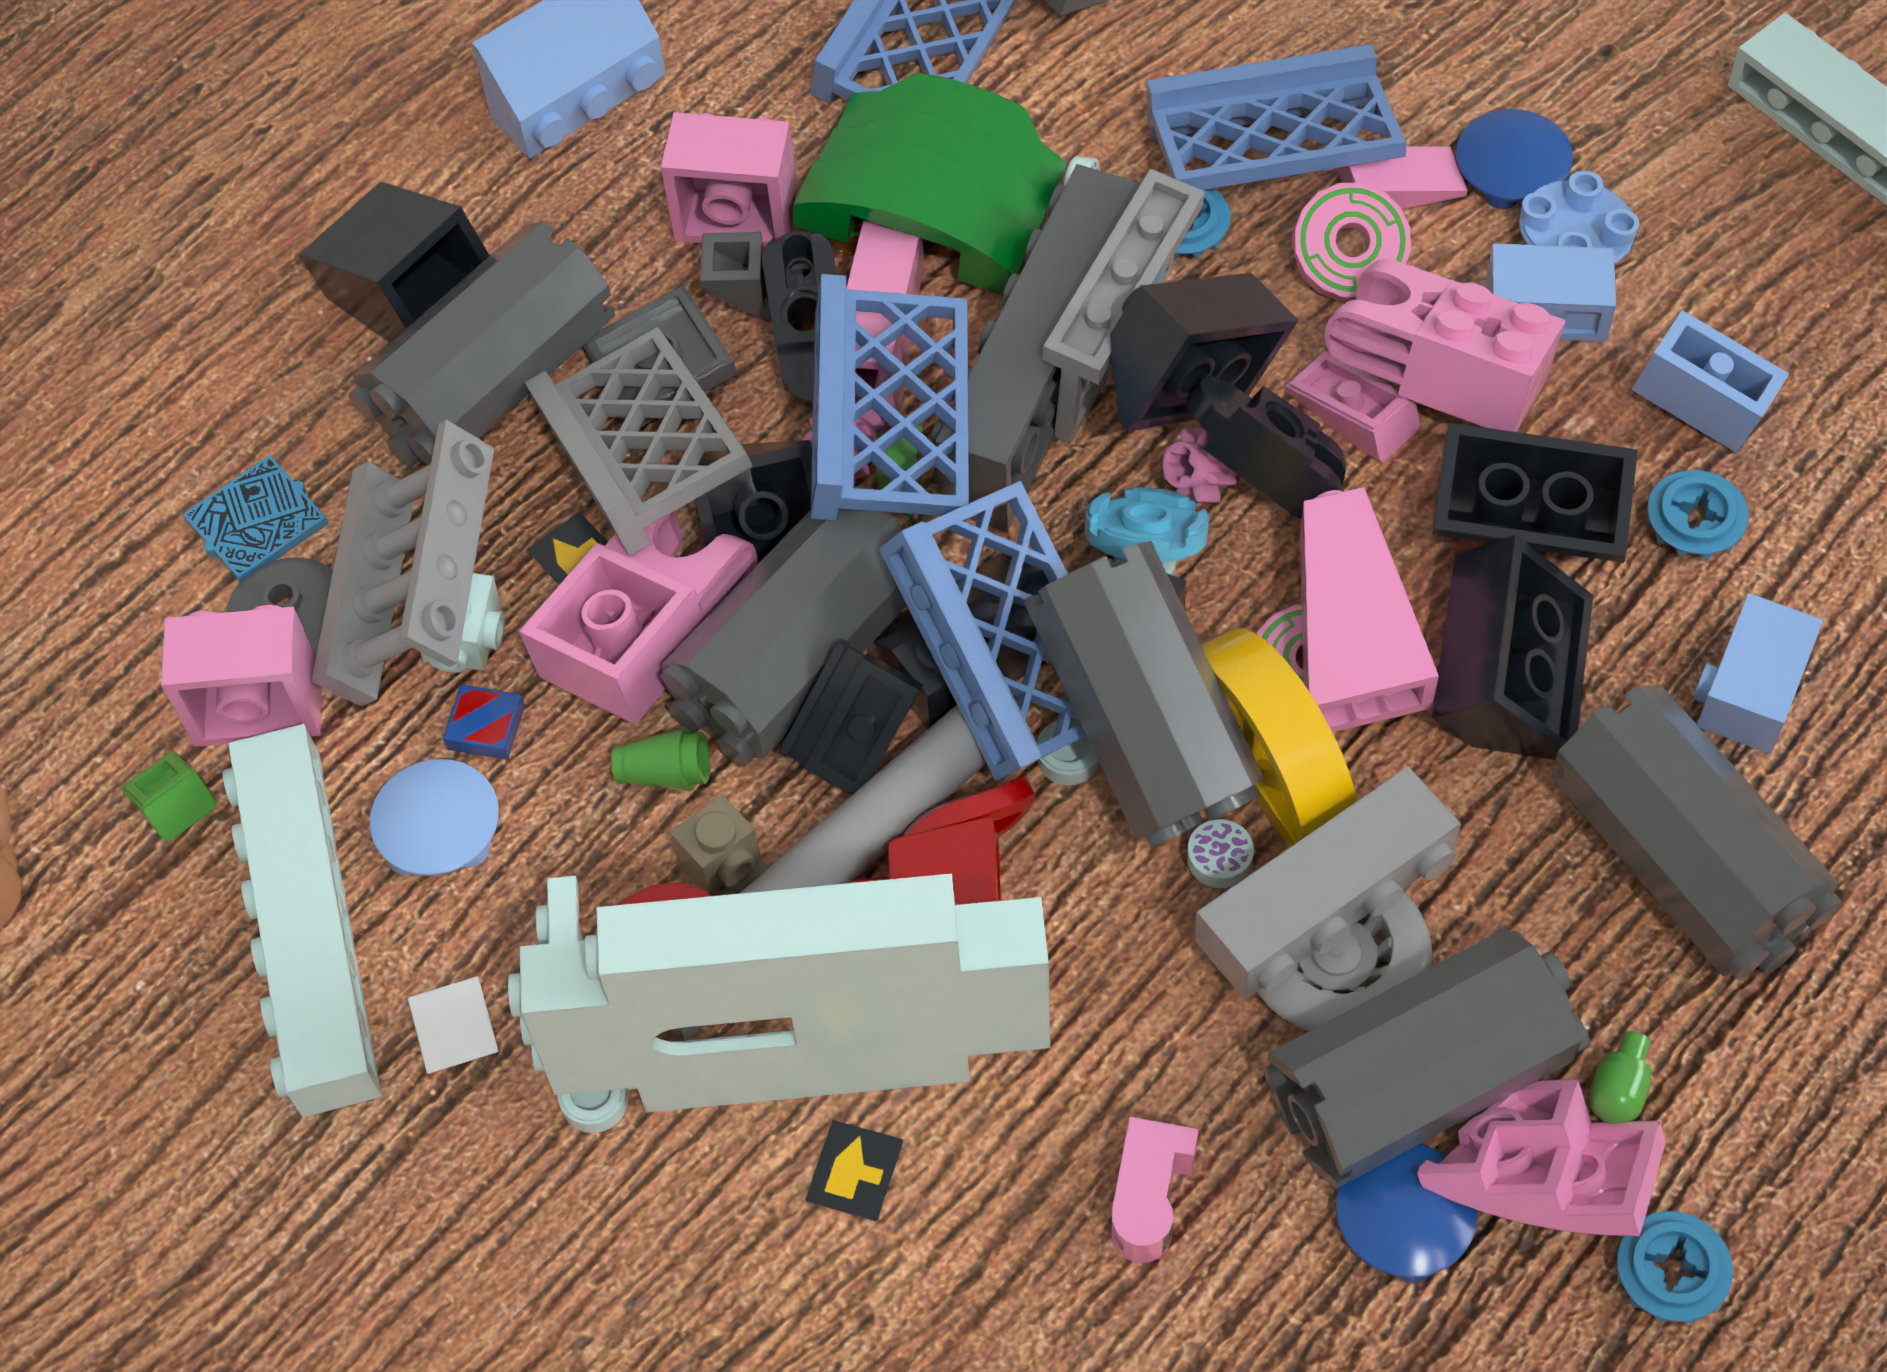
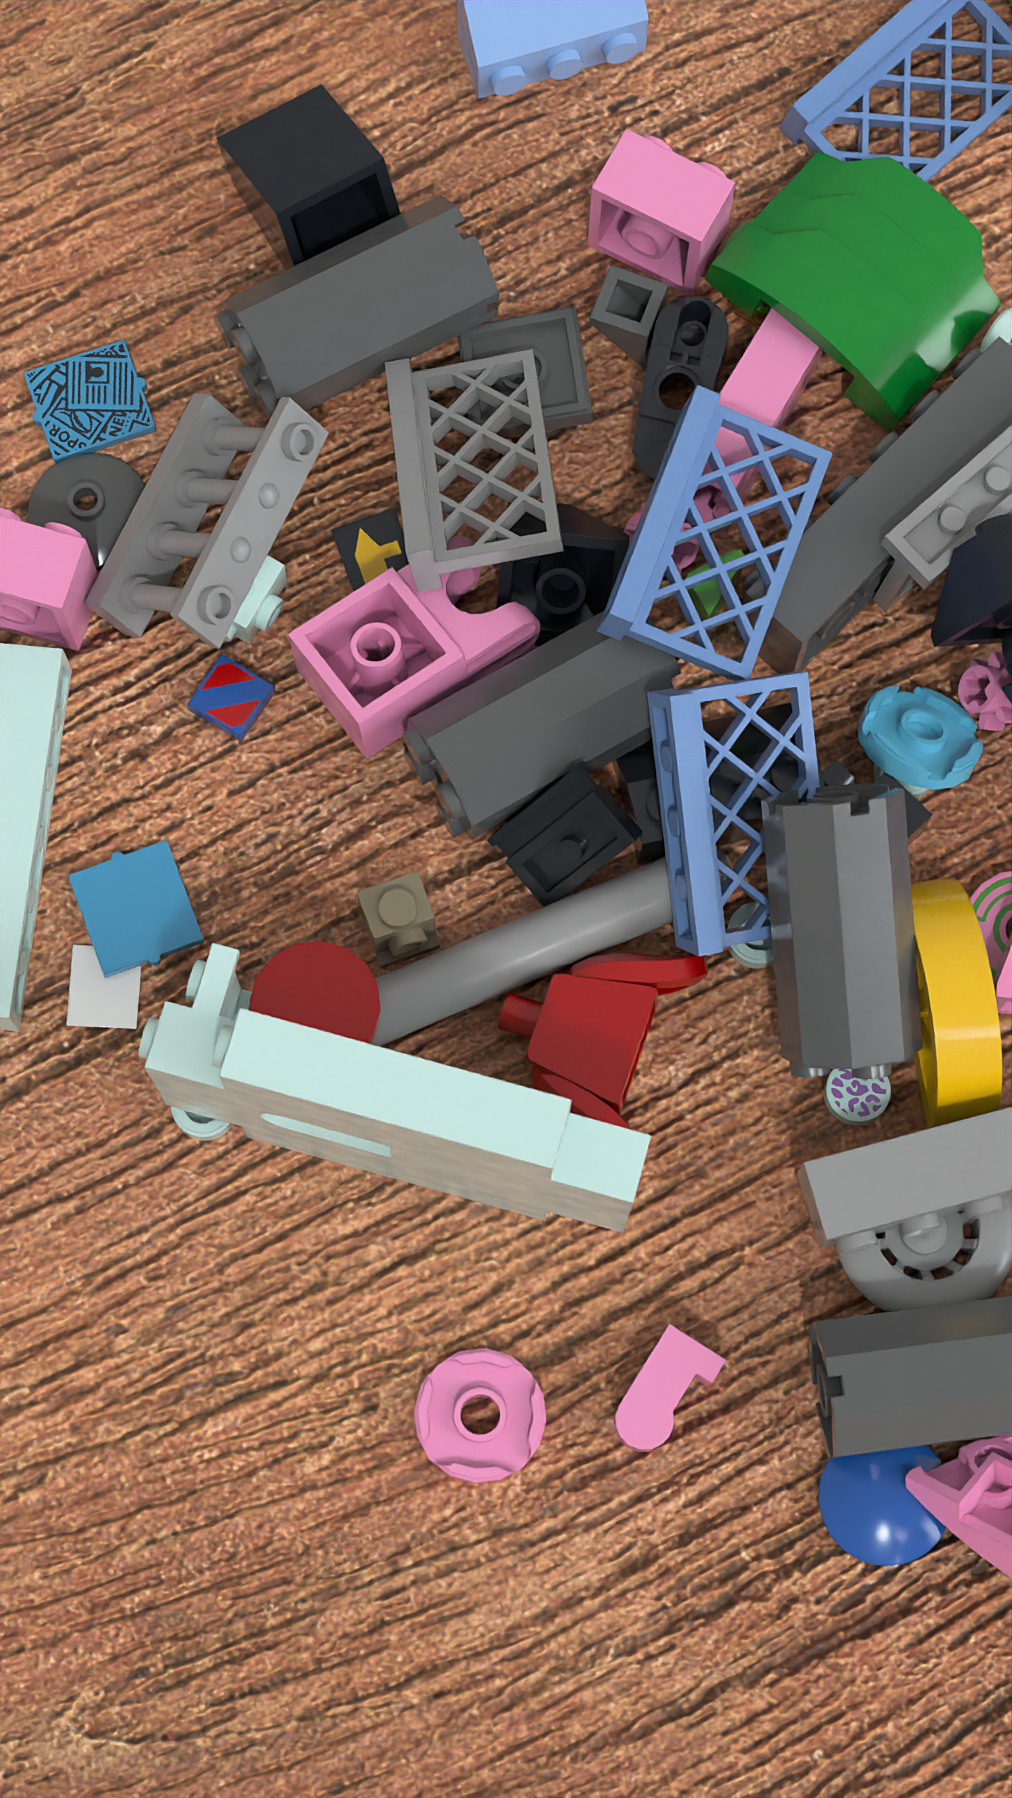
camera: 15 degrees right, 15 degrees up
(434, 818) = (154, 778): light blue dish -> none
(457, 941) = (135, 909): none -> dark azure piece
(663, 761) = (381, 804): bright green cone -> none
(854, 1170) = (411, 1265): black sticker -> none
(986, 1324) = (471, 1376): none -> bright pink tile

